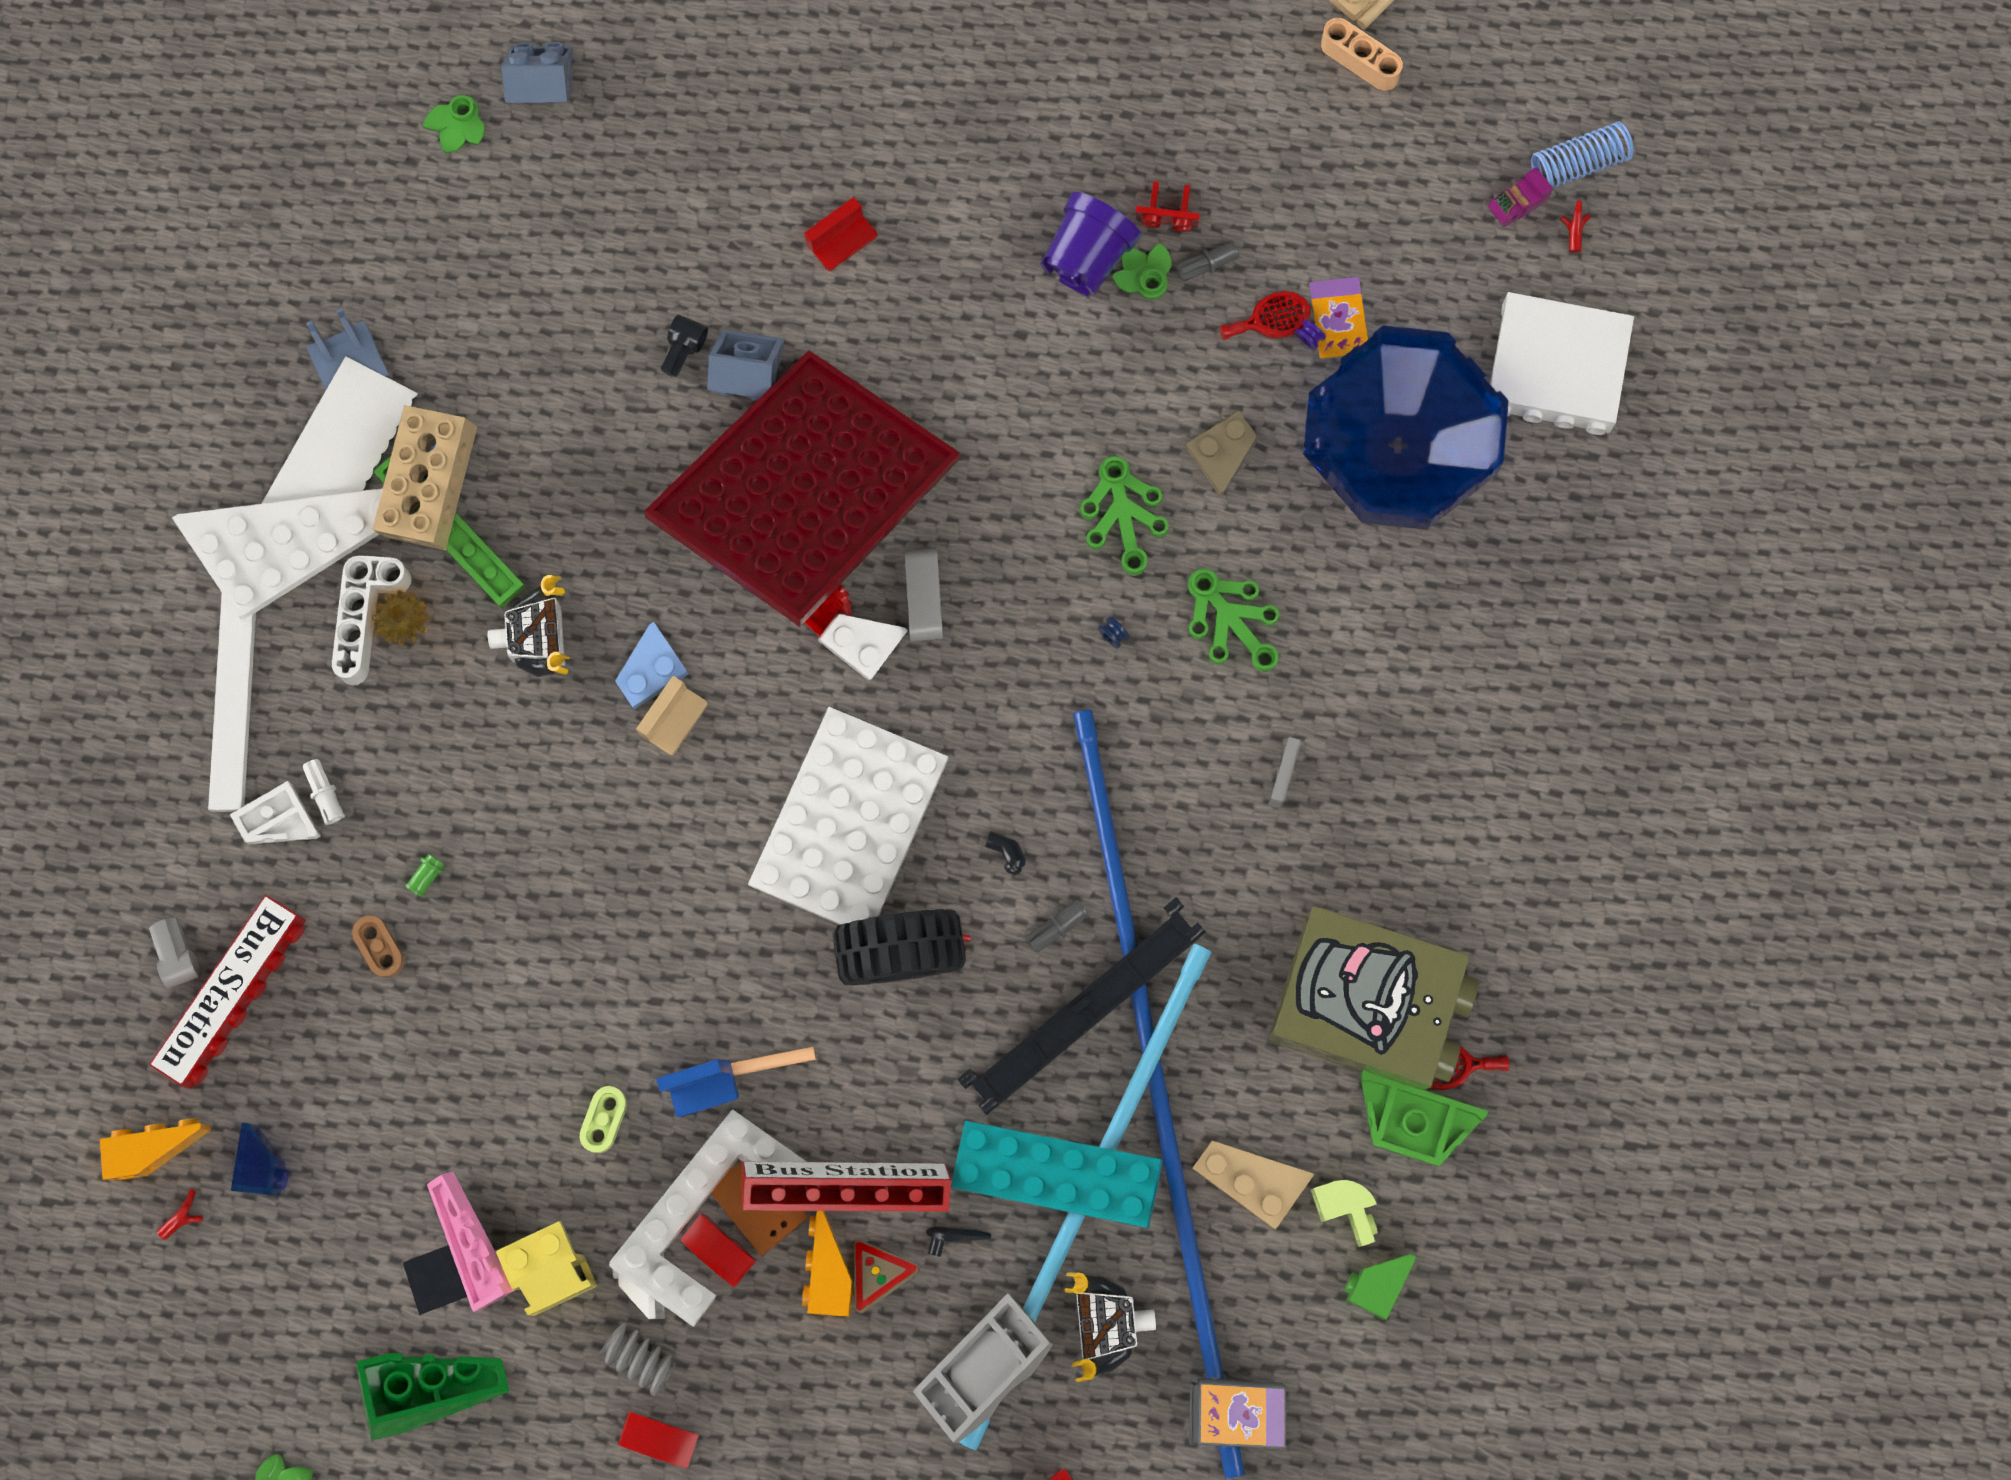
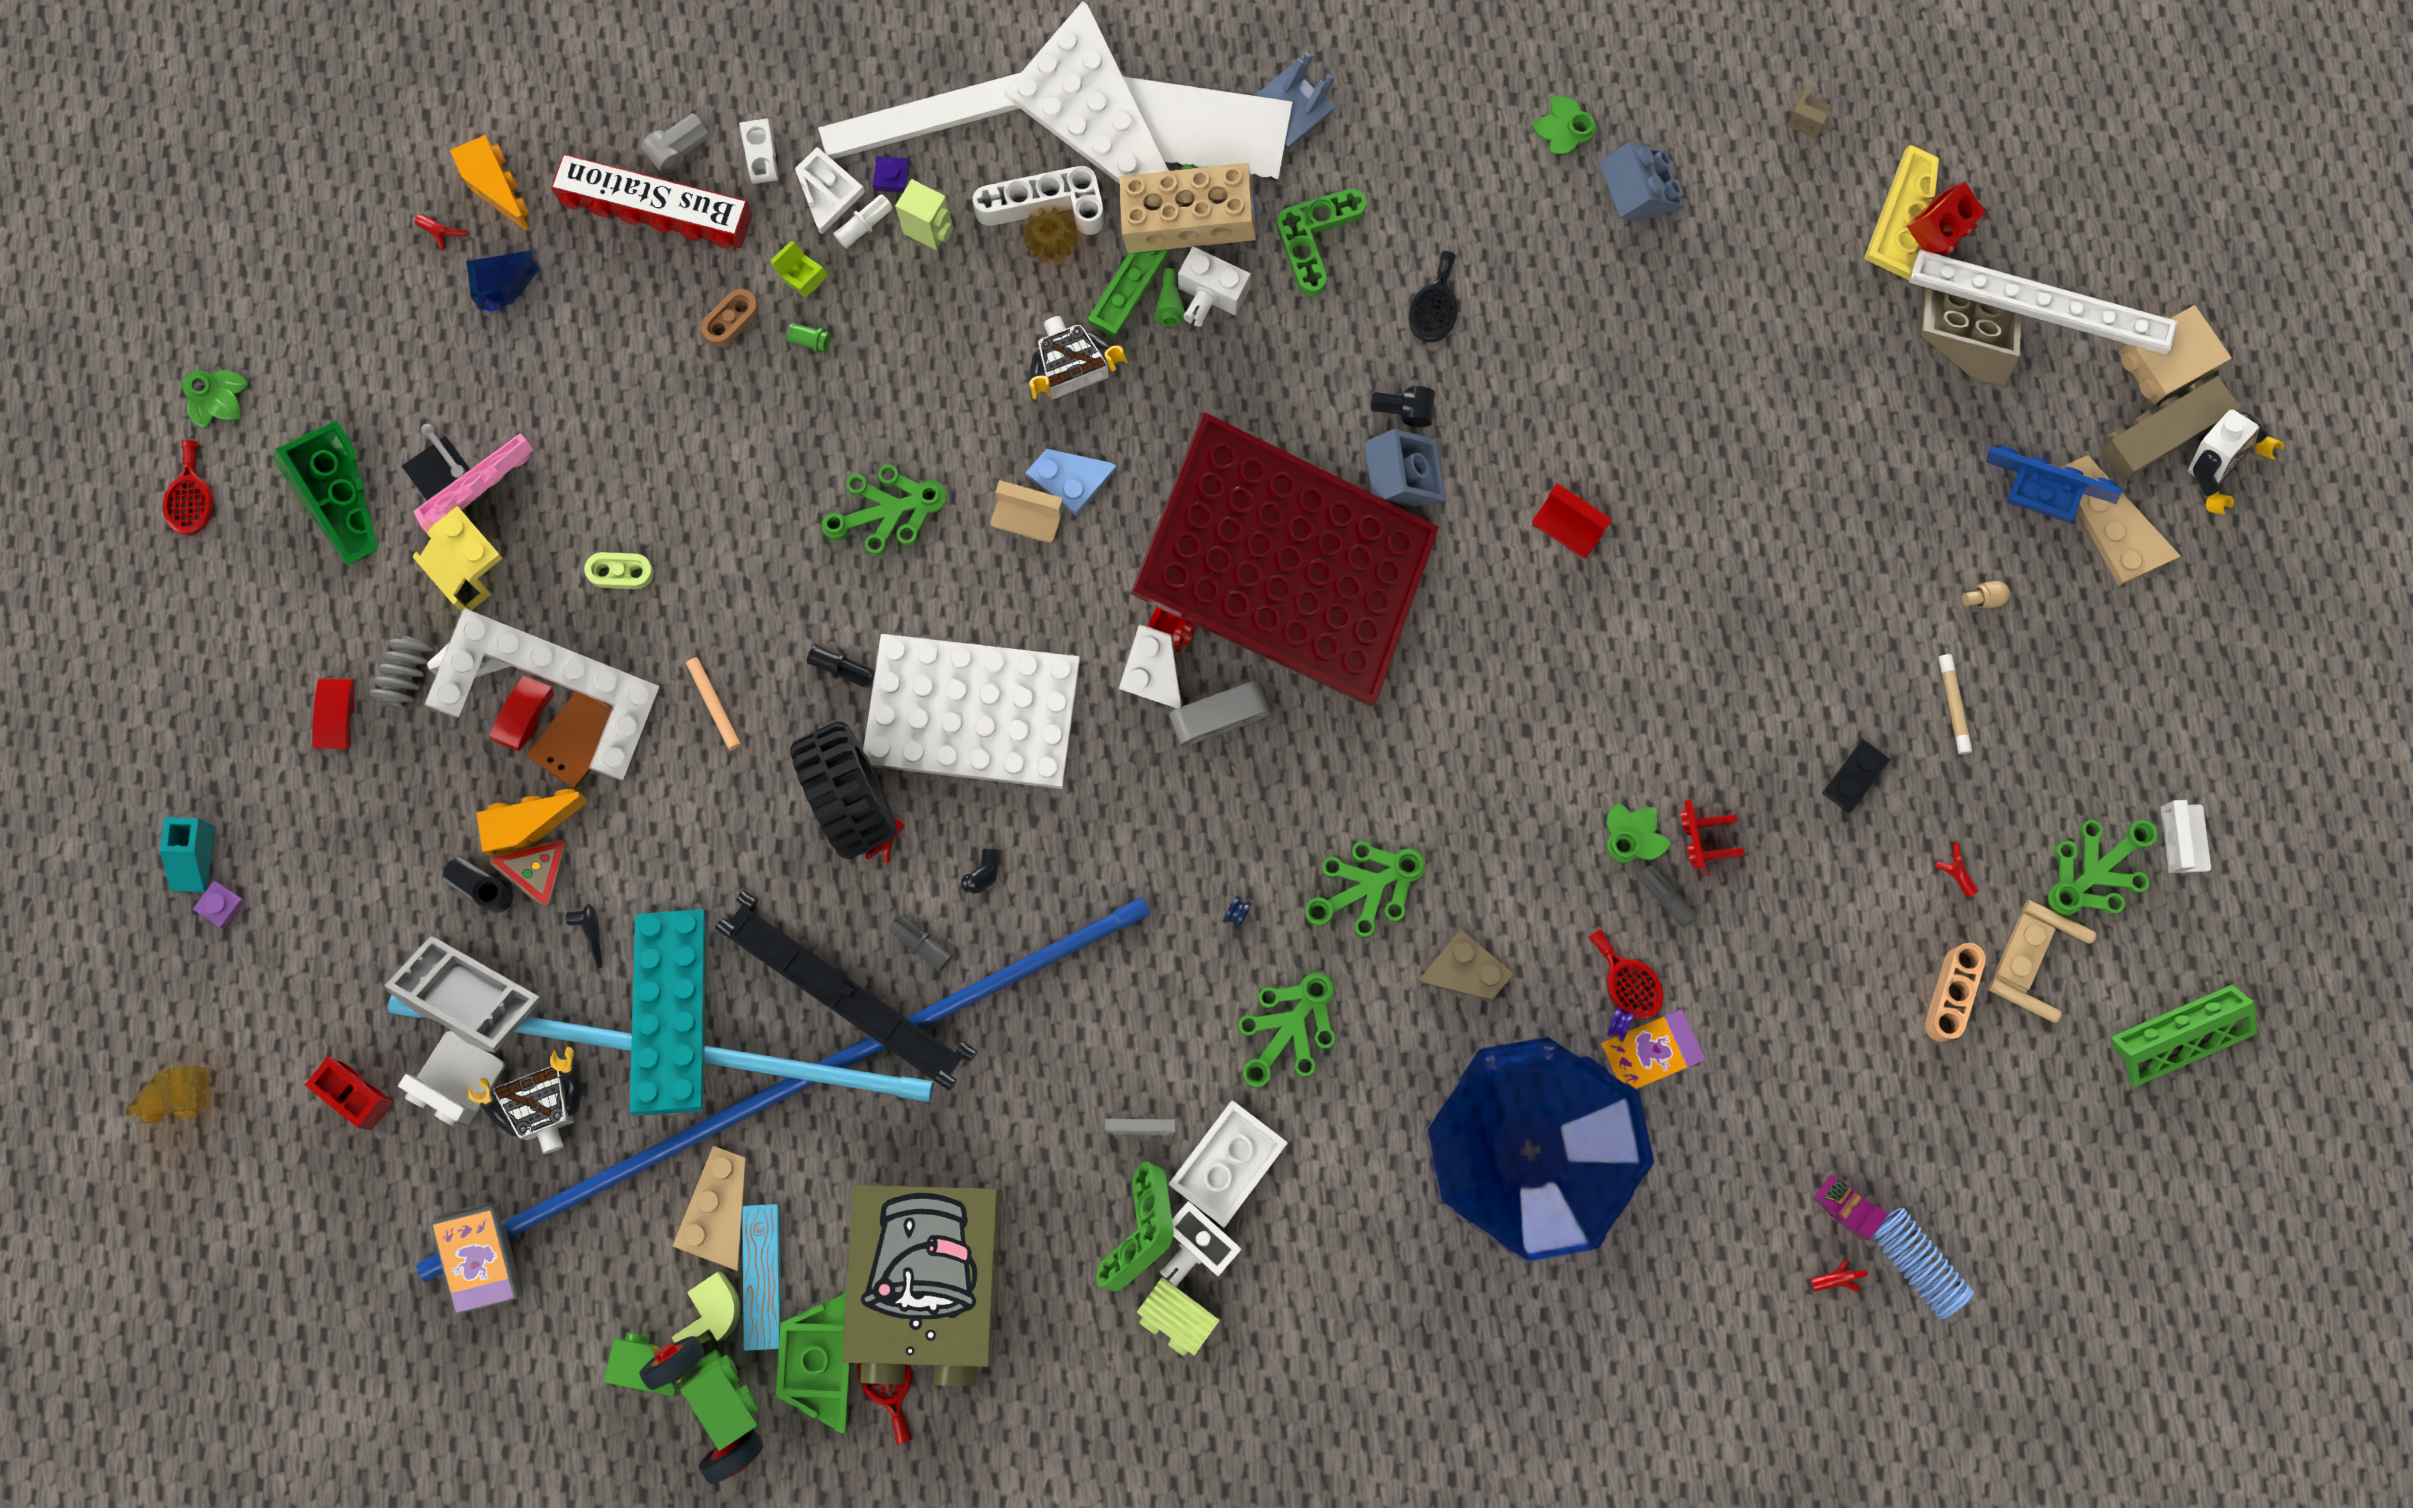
camera: 70 degrees right, 0 degrees up
(213, 871) = (759, 150): none -> white leg
(282, 753) = (891, 174): none -> dark purple plate
(342, 726) = (924, 215): none -> yellowish green brick
(353, 865) = (798, 269): none -> lime bracket
(445, 1258) = (457, 470): none -> light grey hinge
(474, 379) = (1309, 225): none -> bright green beam
(505, 480) = (1211, 283): none -> white brick
(510, 527) = (1169, 306): none -> bright green cone
(550, 266) = (1446, 260): none -> black piece
(625, 843) = (889, 509): none -> bright green plant
(700, 1087) = (671, 650): blue panel -> none
(767, 931) = (839, 666): none -> black axle
(845, 1186) = (602, 810): red brick -> none
(874, 1336) = (477, 884): none -> black piece
(1057, 1401) = (446, 1079): none -> white bracket
(1089, 243) = (1636, 765): dark purple piece -> none
(1147, 73) = (1856, 776): none -> black plate
(1257, 17) = (1959, 872): none -> red bar
(1325, 1154) = (761, 1276): none -> medium azure tile
(1338, 706) = (1228, 1163): none -> white plate
(1387, 790) = (1153, 1232): none -> bright green beam
(1403, 748) = (1199, 1243): none -> white brick
(1431, 1214) = (716, 1399): none -> brick
(1462, 787) = (1177, 1317): none -> yellowish green brick
(1561, 362) = (1675, 1299): white panel -> none

